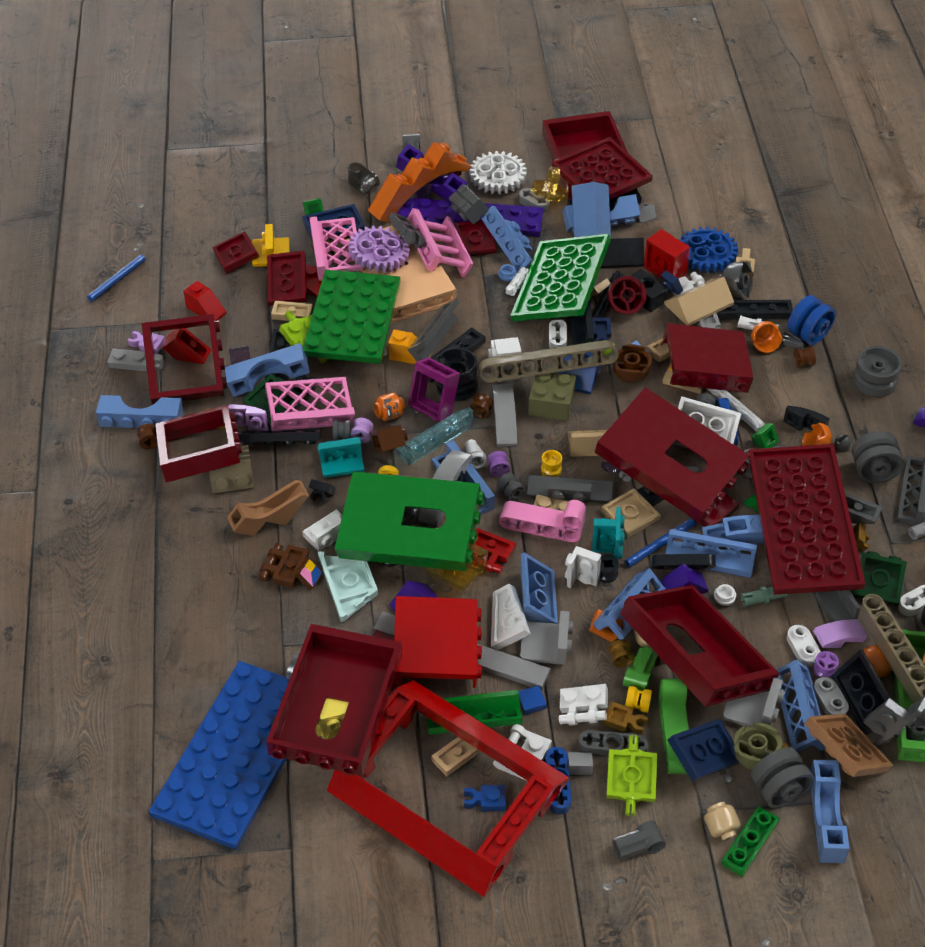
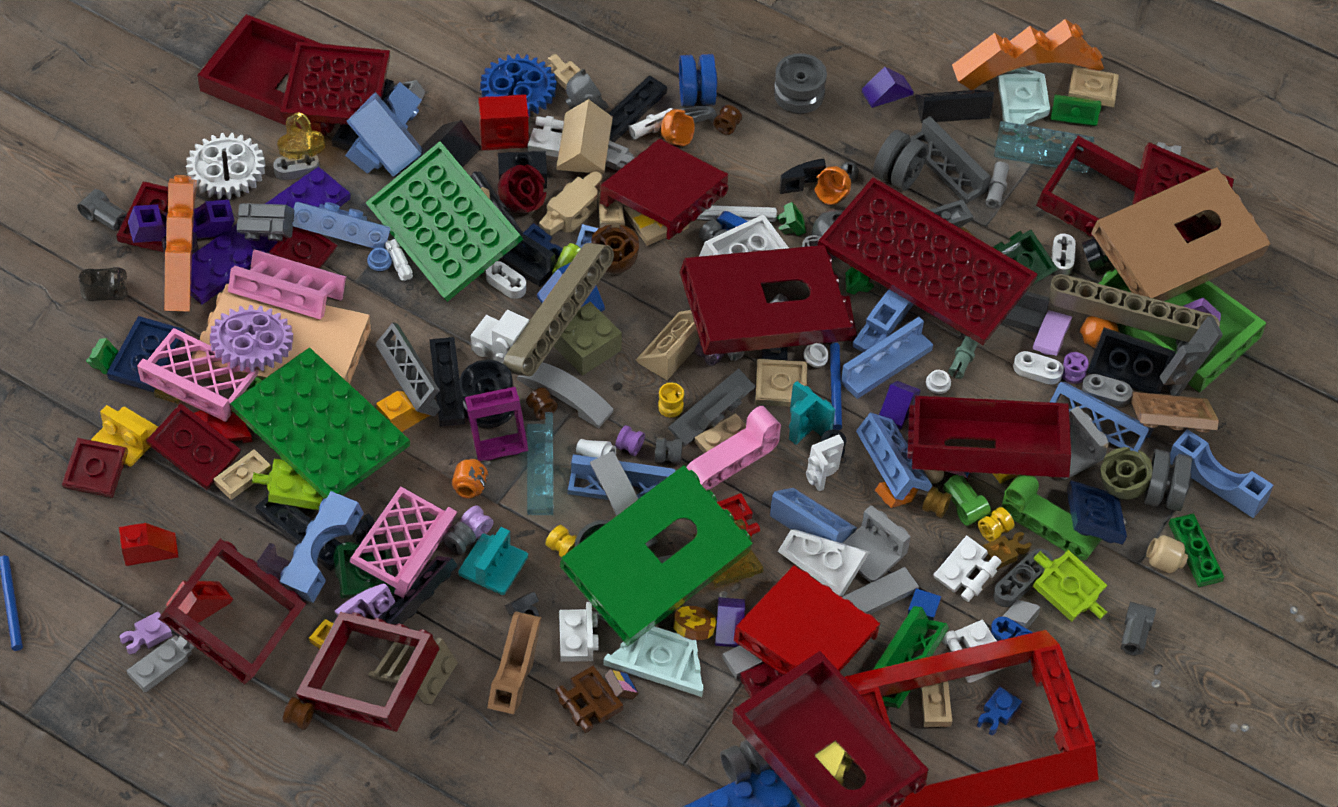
camera: 55 degrees left, 5 degrees up
(114, 413) = (232, 723): medium blue arch -> none
(389, 438) = (520, 505): reddish brown brick -> none
(389, 580) = (694, 623): none -> piece
(407, 230) = (253, 295): dark grey hinge -> none
(644, 327) = (572, 205): none -> tan hinge
(670, 516) = (816, 355): none -> white plate
(672, 283) = (541, 143): dark blue plate -> none
(672, 561) = (881, 383): black beam -> none

